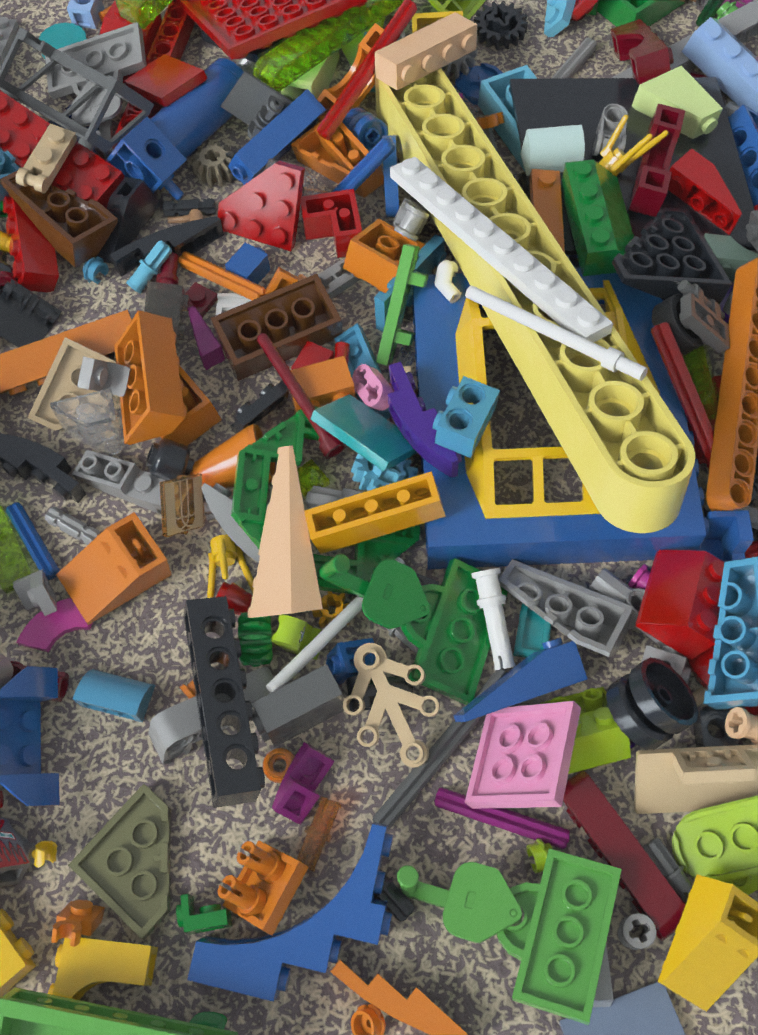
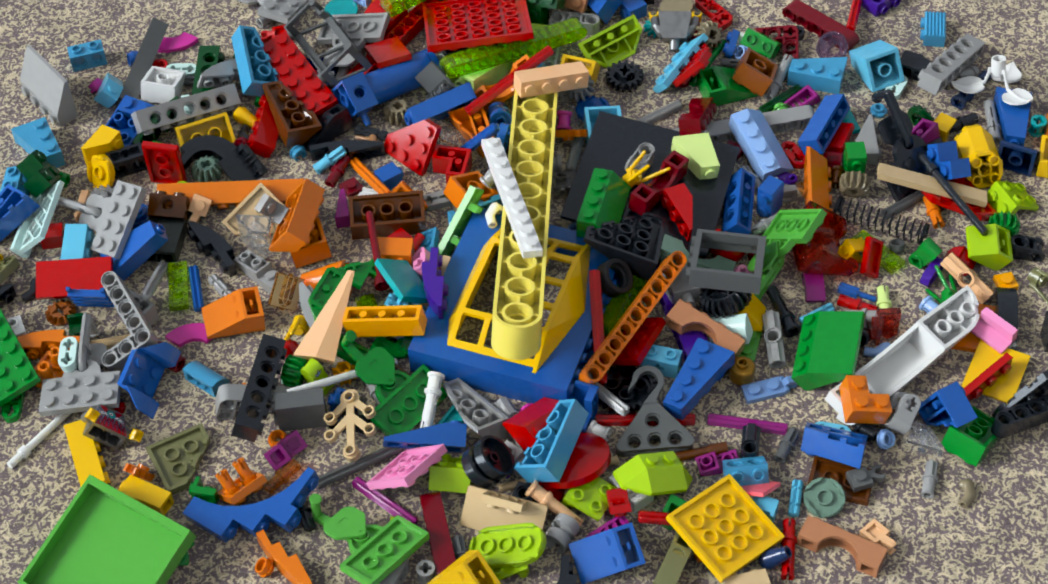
camera: 20 degrees right, 15 degrees down
(35, 592) = (186, 313): light grey bracket -> none
(46, 158) = (294, 79): tan plate -> none
(169, 459) = (291, 264): black head -> none
(170, 302) = (331, 182): clear smoke brick -> none
(269, 399) = (360, 253): black plate -> none
(470, 417) = (455, 283): dark azure brick -> none
(546, 199) = (572, 198): orange plate -> none
(552, 147) = (596, 156): light aqua brick -> none
(610, 358) = (528, 264): white bar -> none
(703, 317) = (627, 275): dark grey plate -> none

